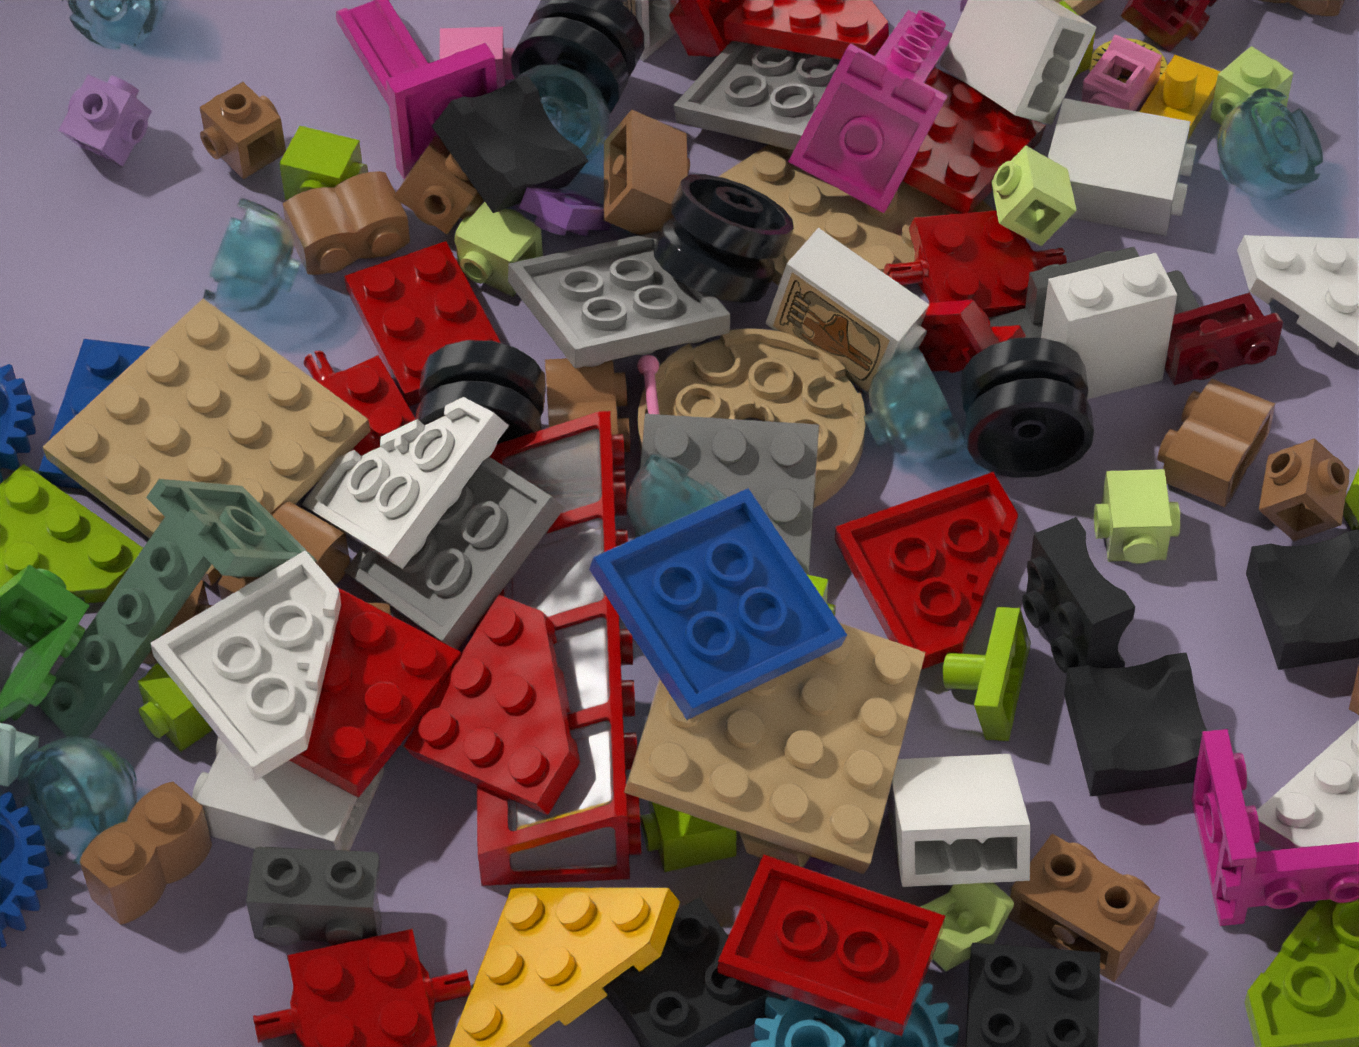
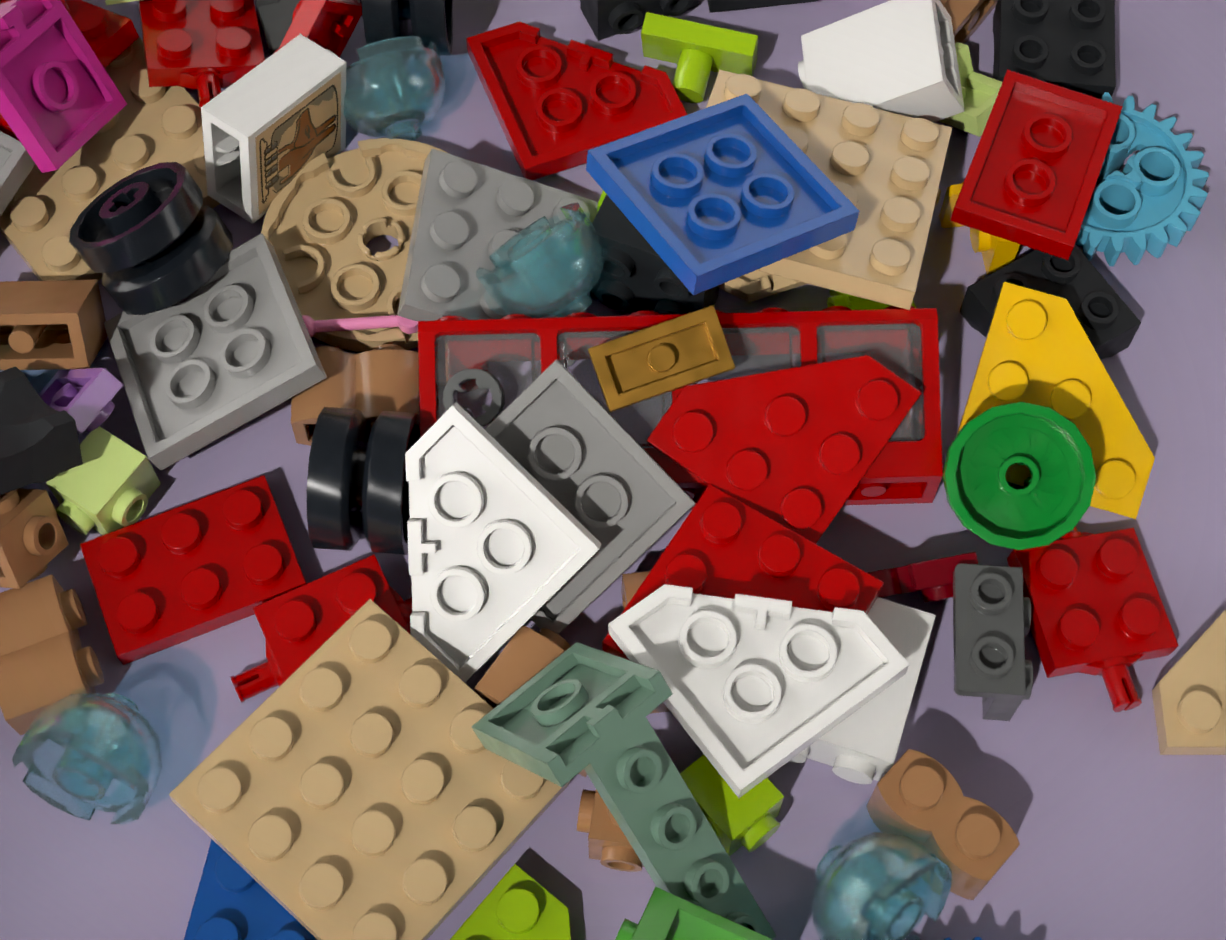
camera: 90 degrees left, 10 degrees up
(383, 836) = (930, 577): none -> dark red plate
(465, 904) = (1053, 494): none -> green wheel
(539, 460) = (484, 381): none -> dark grey bush
(565, 587) = (661, 358): none -> pearl gold plate

